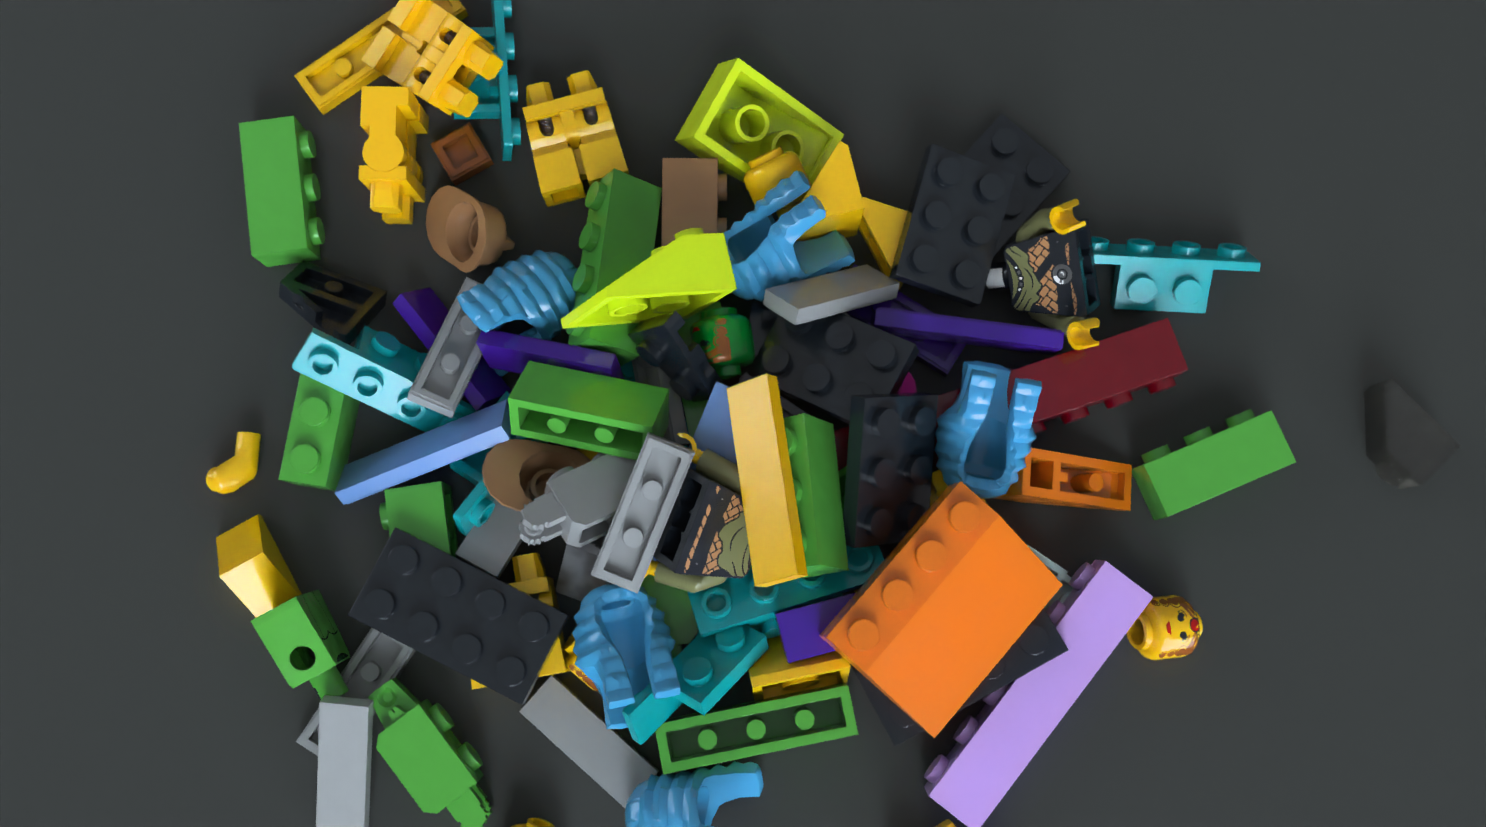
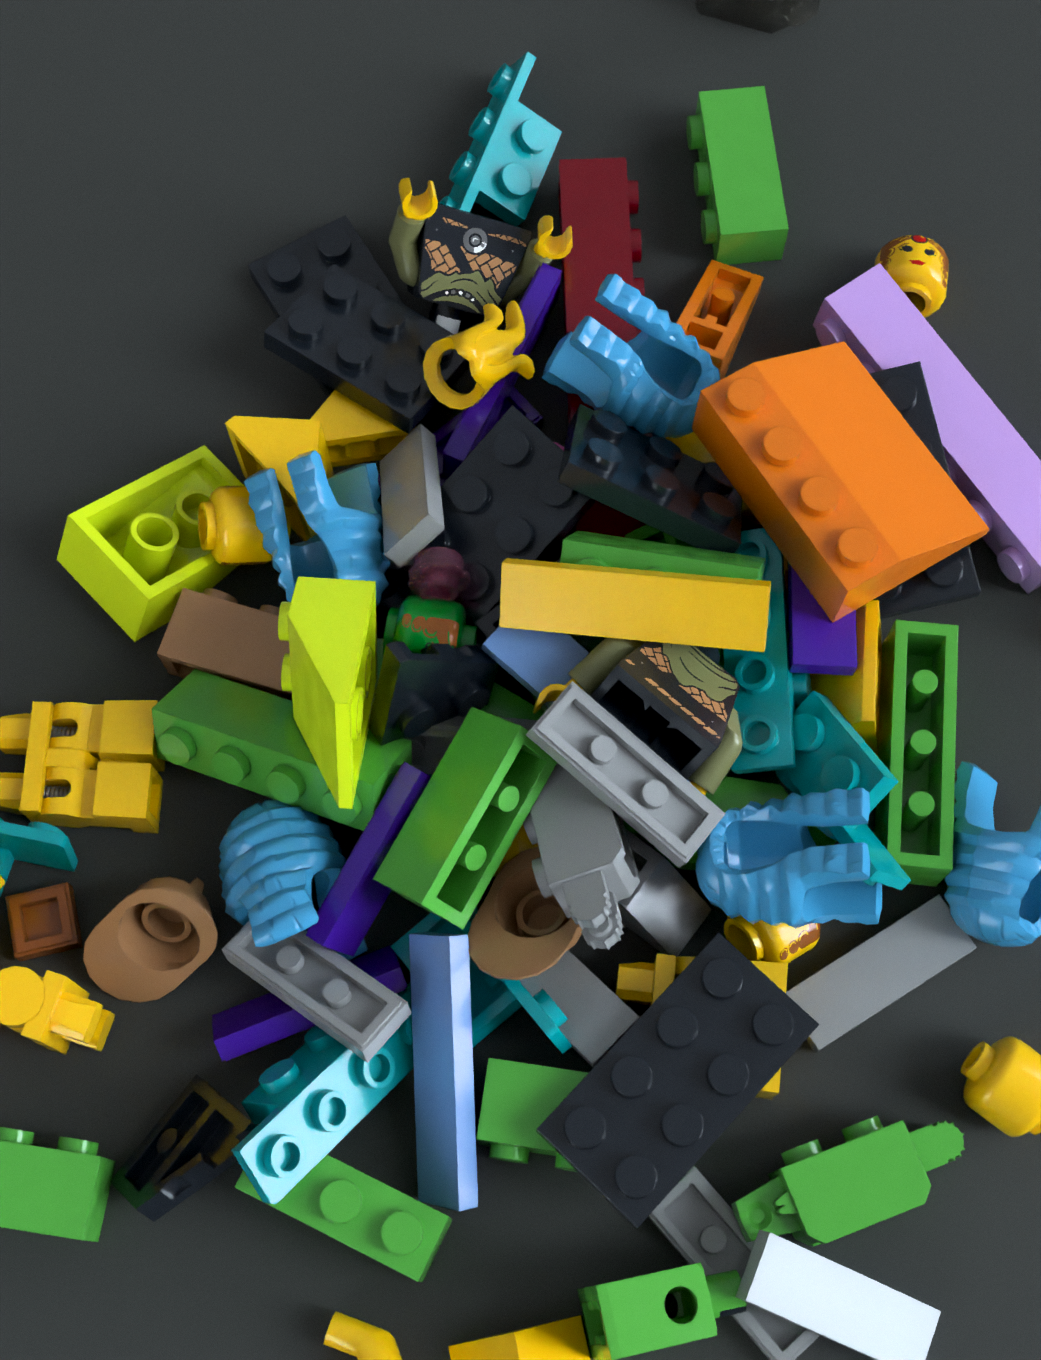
camera: 70 degrees left, 10 degrees down
(765, 333) = (438, 574): none -> clear pink plate
(960, 309) = (488, 355): none -> yellow piece

